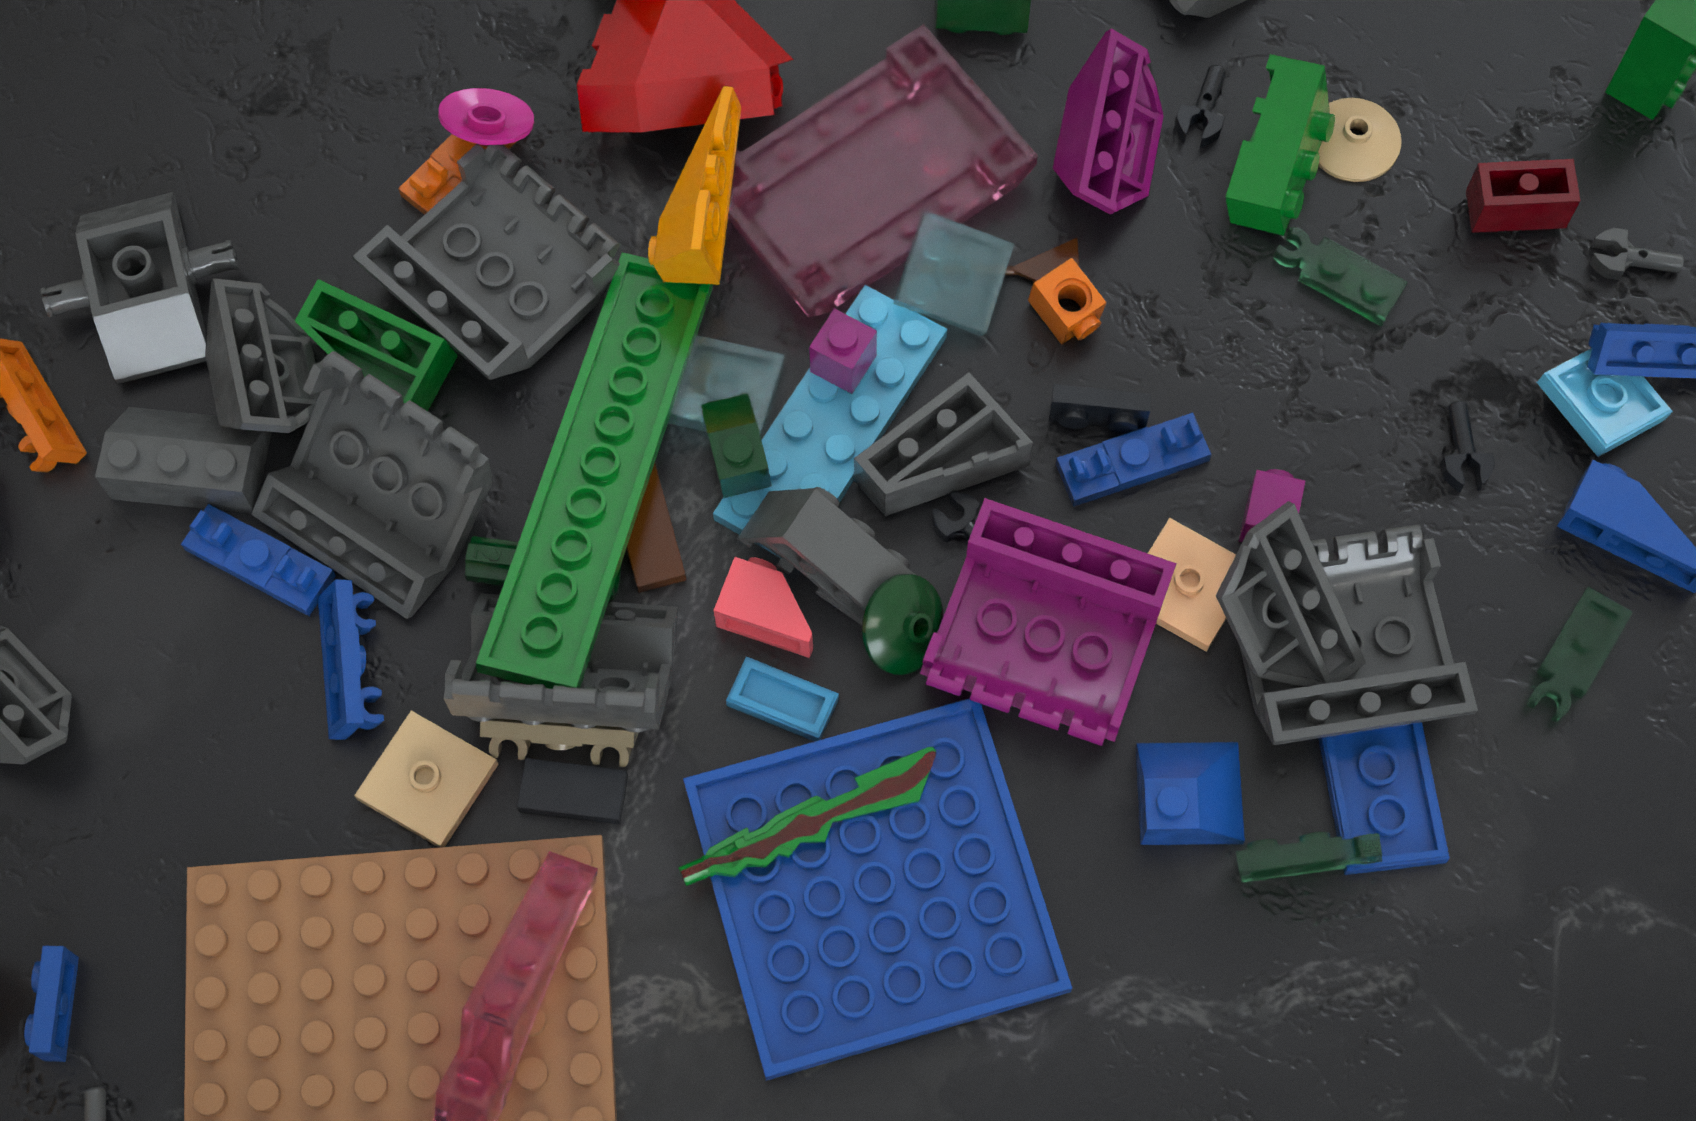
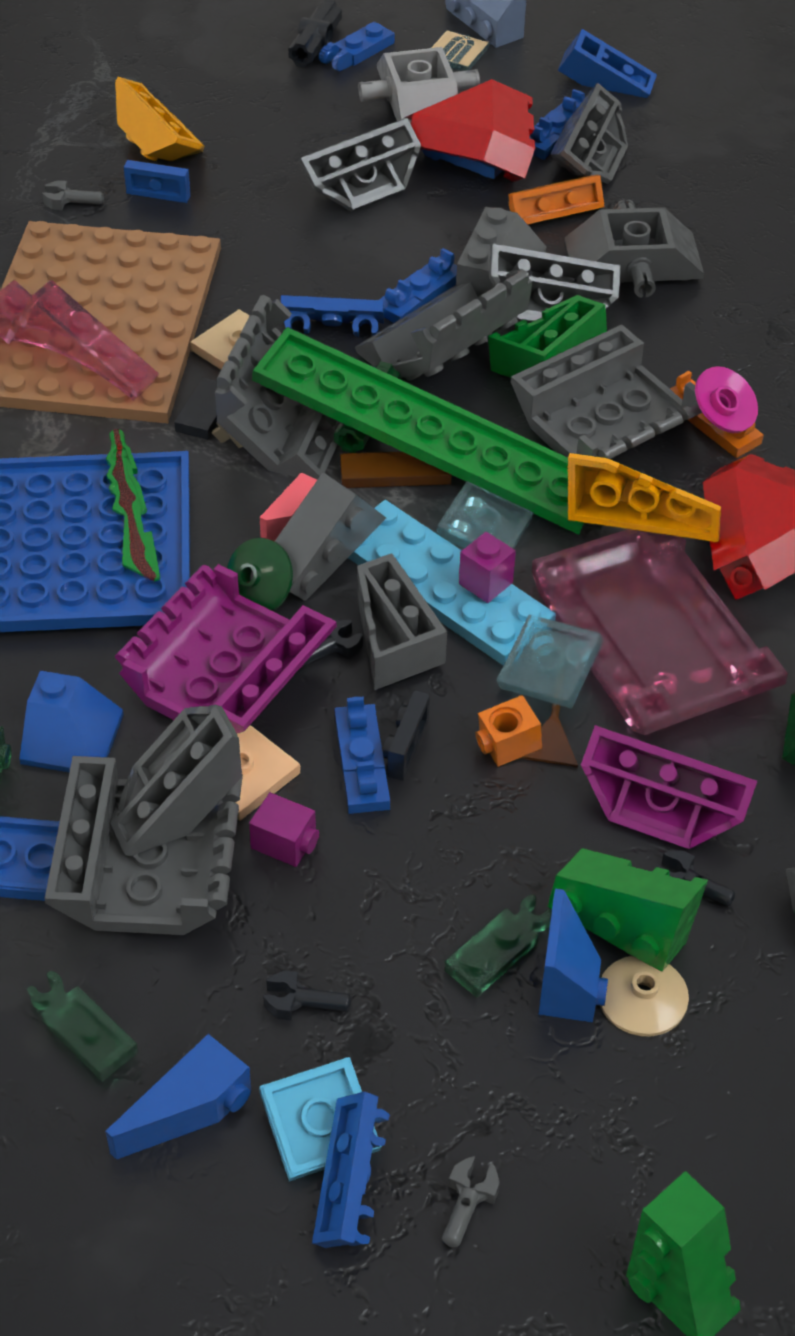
camera: 100 degrees right, 20 degrees down
(736, 445) = (426, 497): dark green slope -> none
(782, 699) = (231, 520): dark azure tile -> none
(1369, 198) = (571, 967): none -> blue slope
(1522, 195) = (542, 1094): dark red brick -> none

